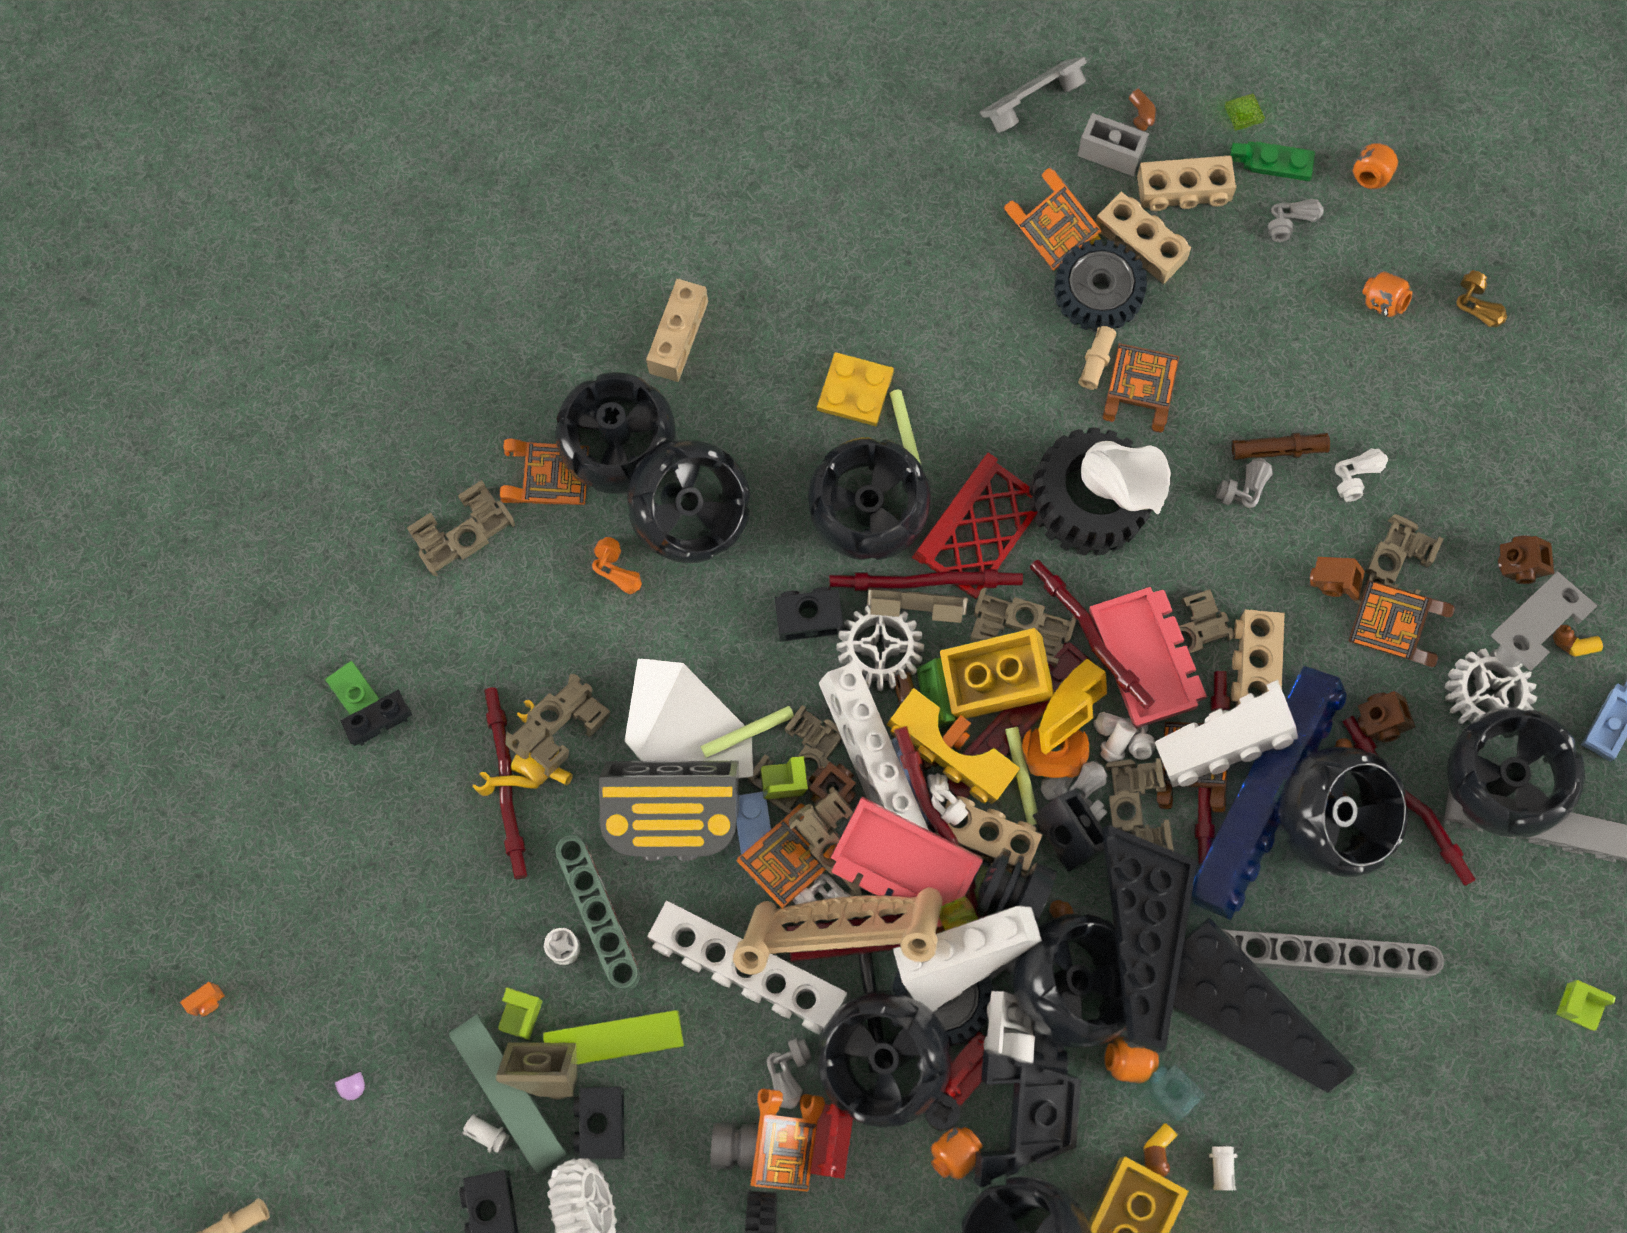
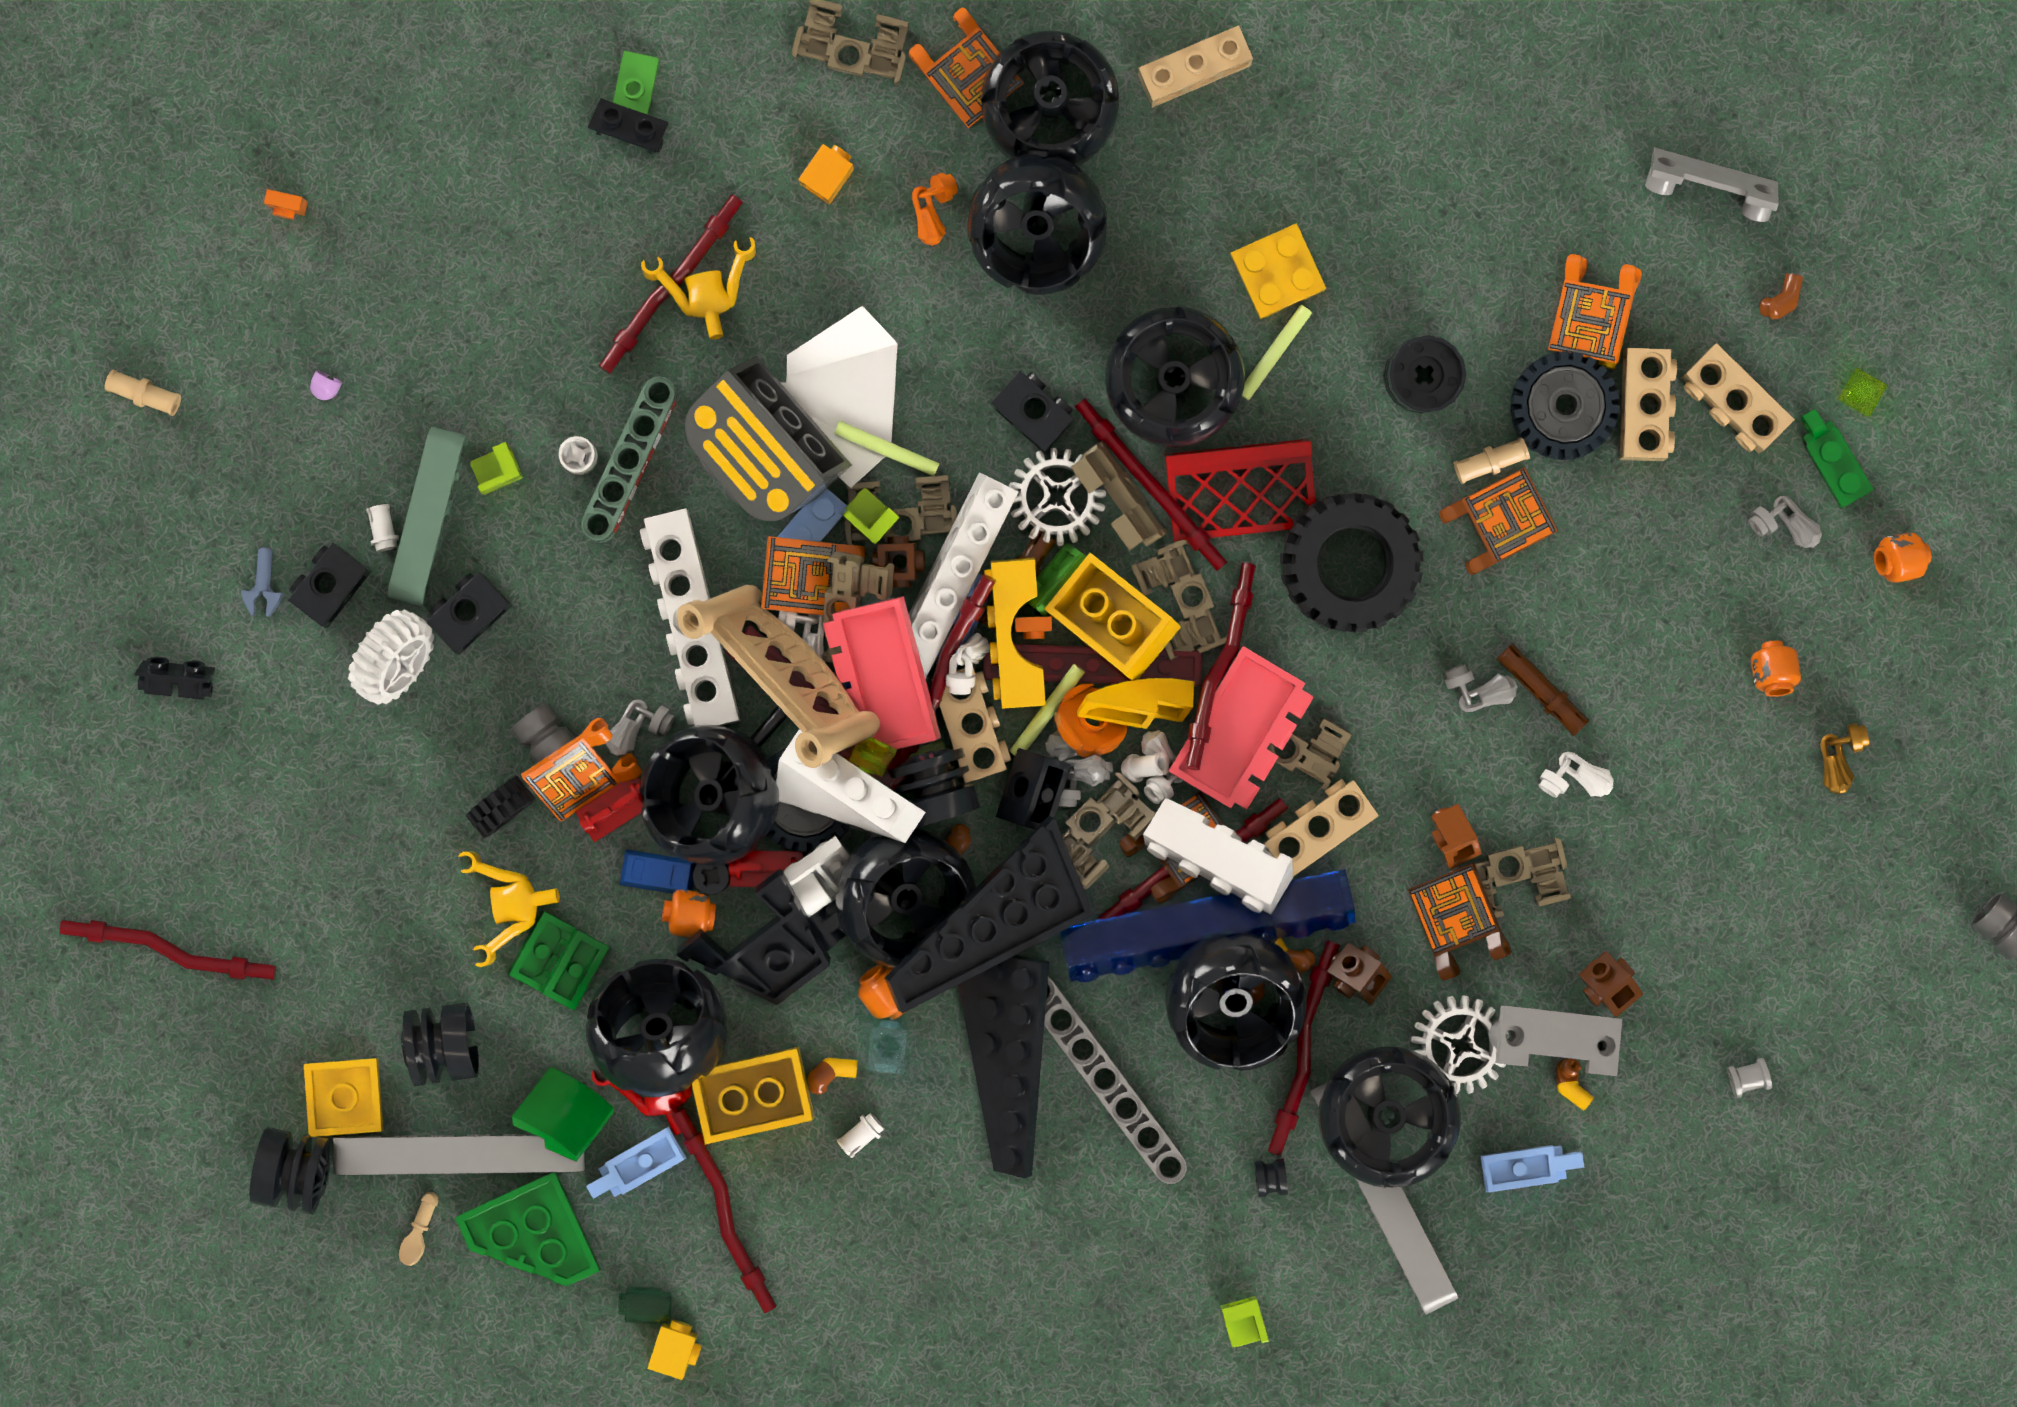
camera: 50 degrees right, 15 degrees up
(529, 615) = (827, 172): none -> light orange brick
(537, 733) = (725, 273): dark tan piece -> none
(540, 1068) = (466, 526): dark tan slope -> none
(622, 1036) = (542, 563): lime slope -> none
(904, 1151) = (656, 872): none -> blue tile
(1016, 336) = (1446, 374): none -> black wheel
(1112, 144) = (1716, 301): light grey brick -> none
(1127, 475) = (1377, 584): white piece -> none
(1488, 898) = (1271, 1177): none -> black wheel

